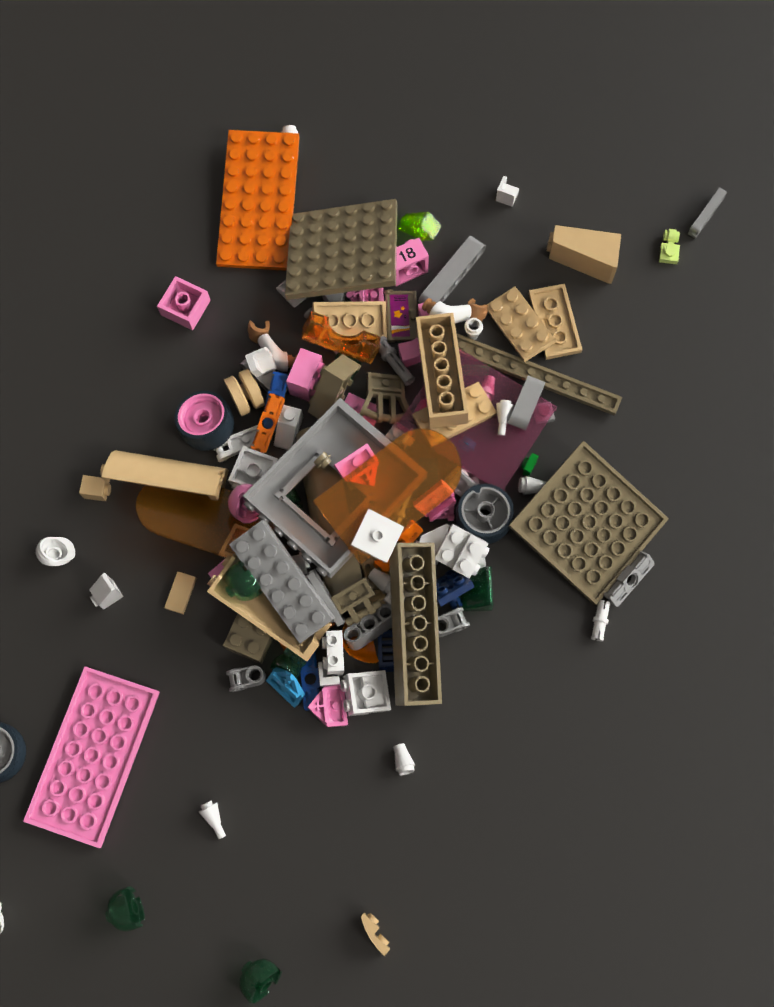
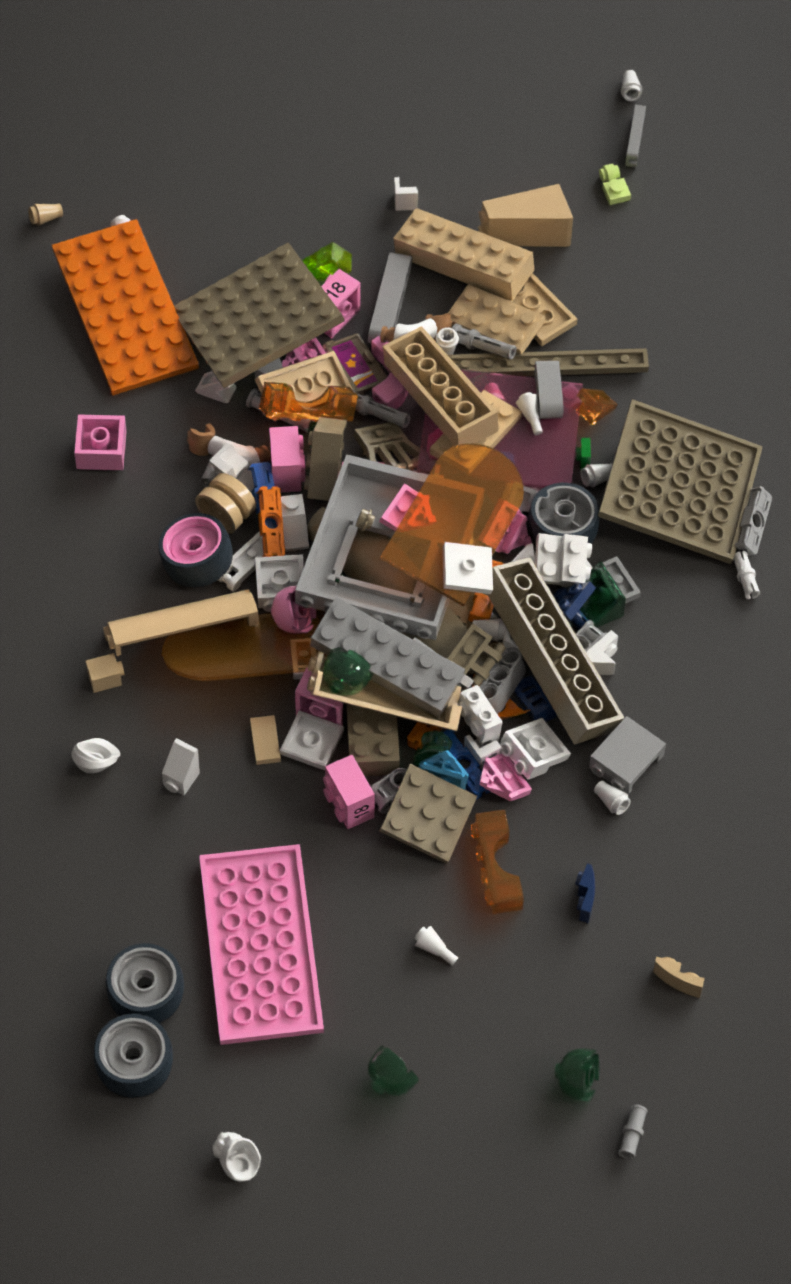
camera: 30 degrees left, 15 degrees down
(209, 612) = (312, 740): none -> white plate
(211, 668) = (349, 792): none -> bright pink brick
(241, 100) = (44, 213): none -> tan cone
(260, 711) = (428, 813): none -> dark tan plate
(298, 748) = (504, 888): none -> clear orange arch
(346, 824) = (586, 891): none -> dark blue slope
(430, 731) = (626, 754): none -> light grey panel
(448, 640) = (601, 653): none -> white slope
(495, 334) = (473, 339): none -> light grey pin
(501, 581) = (622, 579): none -> light grey plate
(524, 261) = (464, 254): none -> tan brick
(560, 426) = (595, 404): none -> clear orange slope
(725, 169) = (630, 87): none -> white cone

